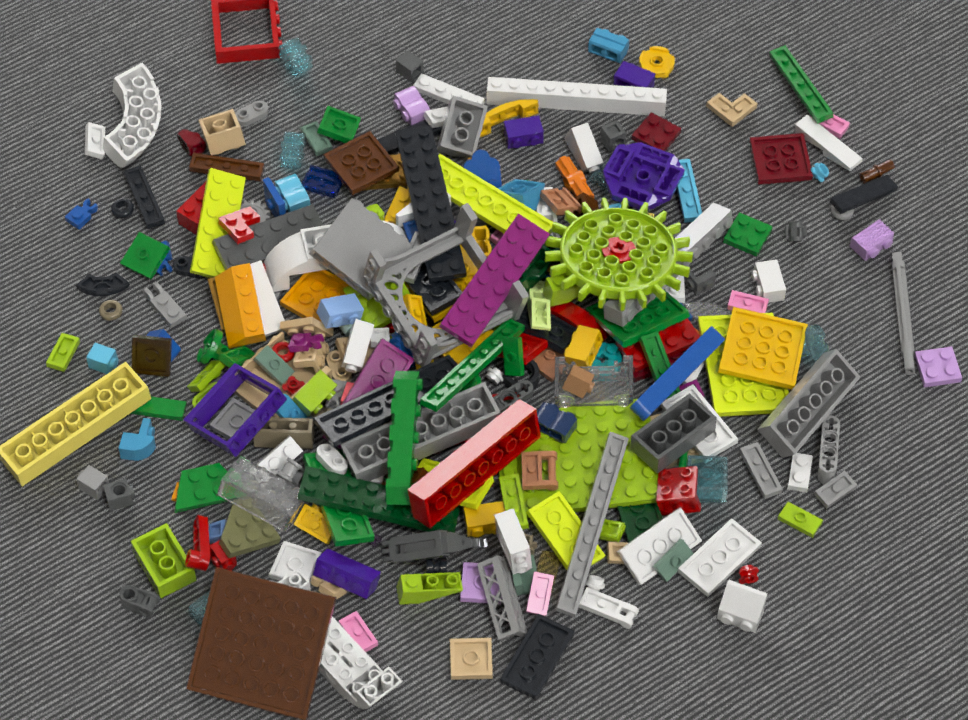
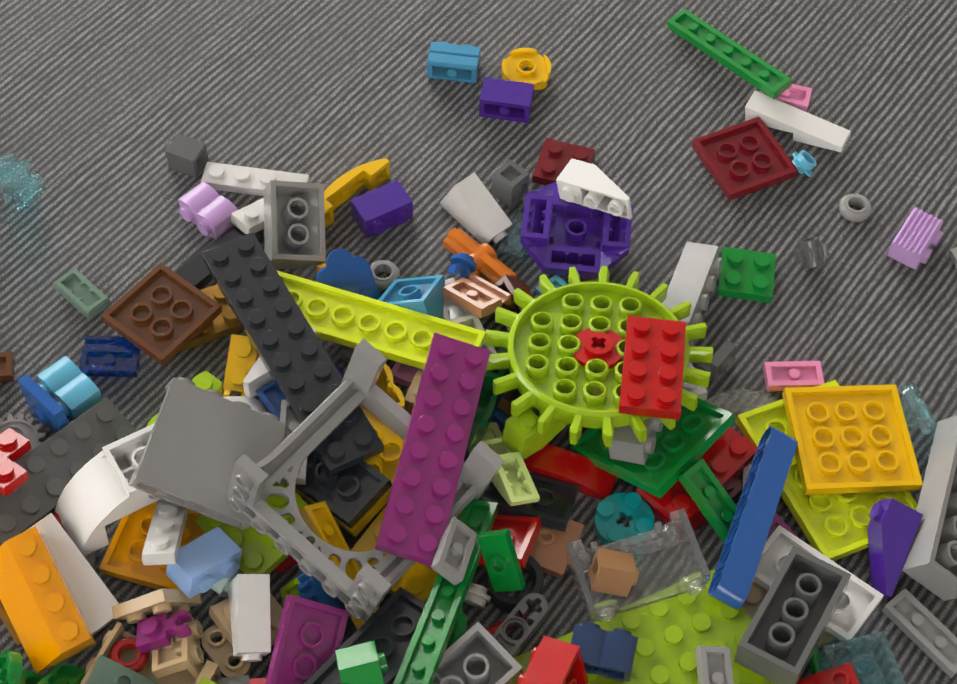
camera: 20 degrees left, 0 degrees up
(292, 150) = (50, 321): clear light blue gear -> none
(322, 287) = (164, 534): none -> white plate
(339, 125) = (110, 265): green plate -> none
(379, 333) = (281, 585): white plate -> none
(485, 340) = (454, 551): none -> light grey plate
(509, 169) = (384, 266): none -> light grey piece
(561, 179) = (463, 263): none -> blue plate
(578, 96) = (438, 140): white brick -> none
(583, 346) = (595, 511): yellow brick -> none
(644, 268) = (653, 368): none -> red plate
(658, 150) = (590, 187): none -> white slope
(688, 193) = (649, 246): medium azure plate -> none
(729, 111) = (652, 111): tan plate -> none
(758, 410) = (889, 542): none -> dark purple slope
(769, 281) = (808, 333): white brick -> none
(863, 194) = (874, 179): black tile -> none
(876, 171) = (874, 144): reddish brown axle -> none

